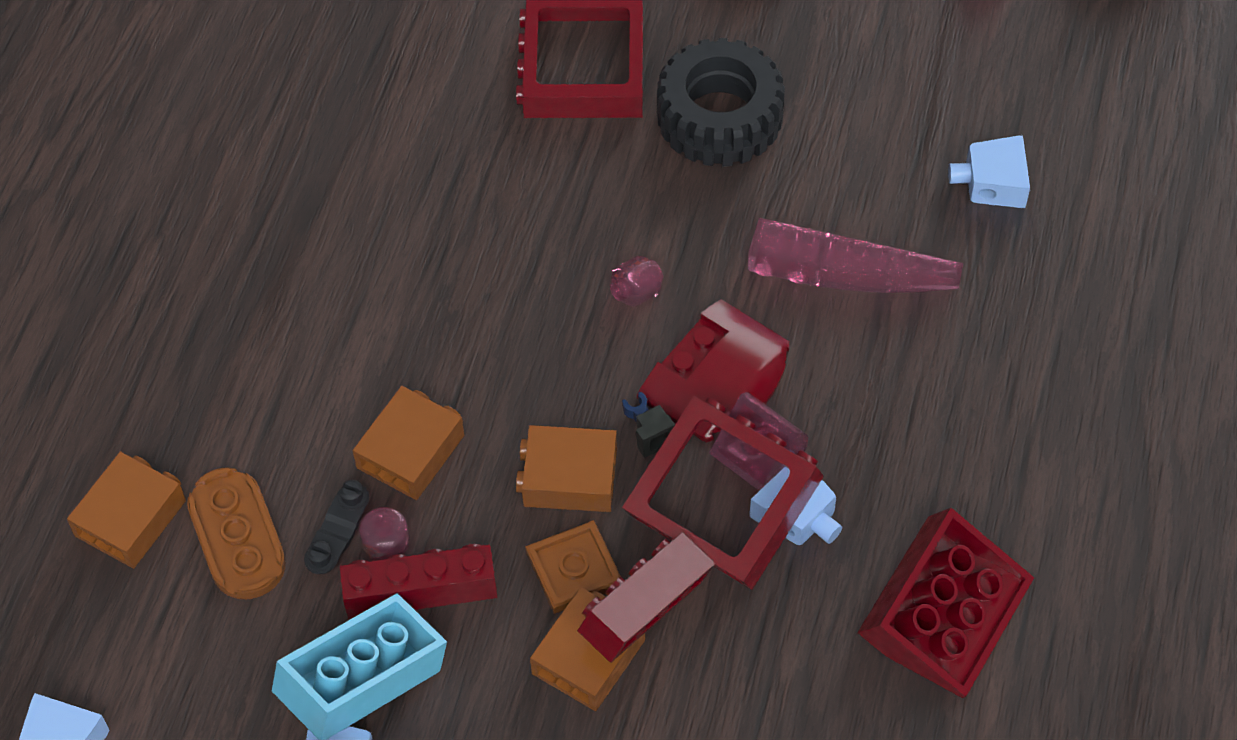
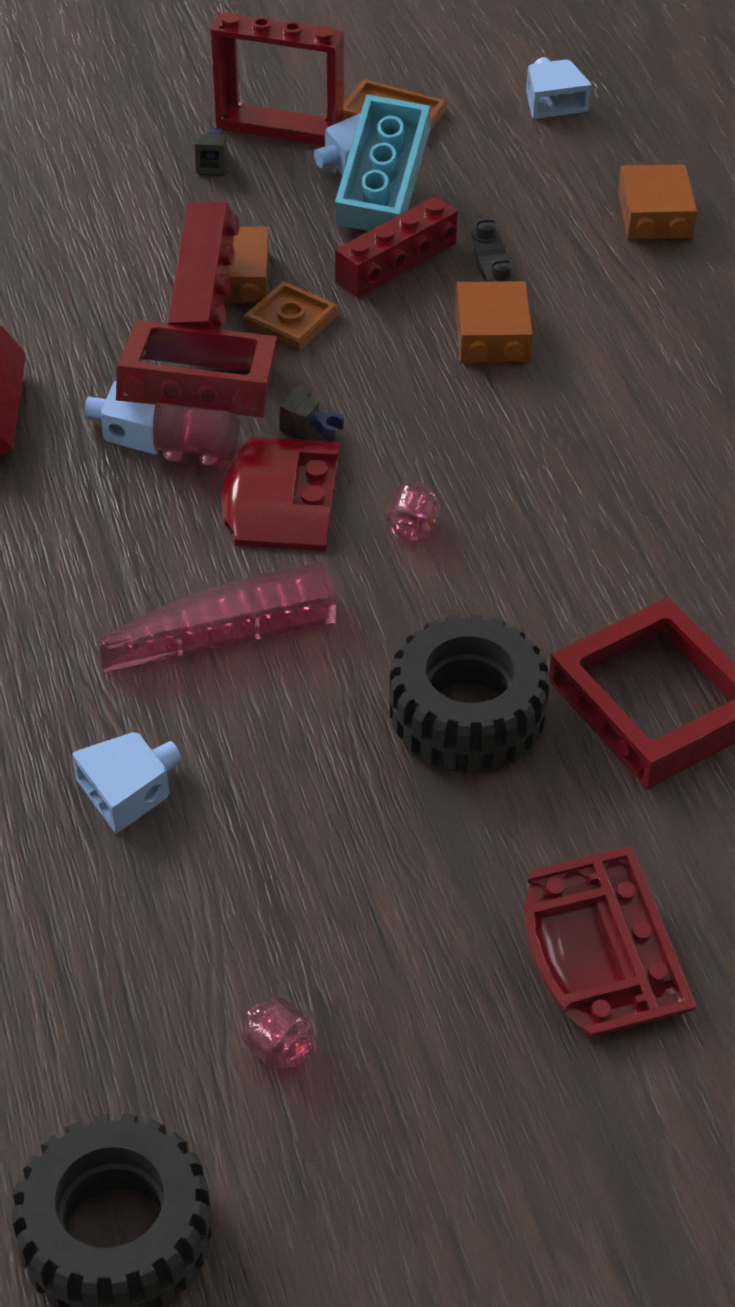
camera: 145 degrees right, 10 degrees down
(236, 533) = (567, 233): dark orange tile -> none
(384, 533) = (450, 258): clear pink head -> none
(568, 468) = (347, 359): dark orange brick -> none

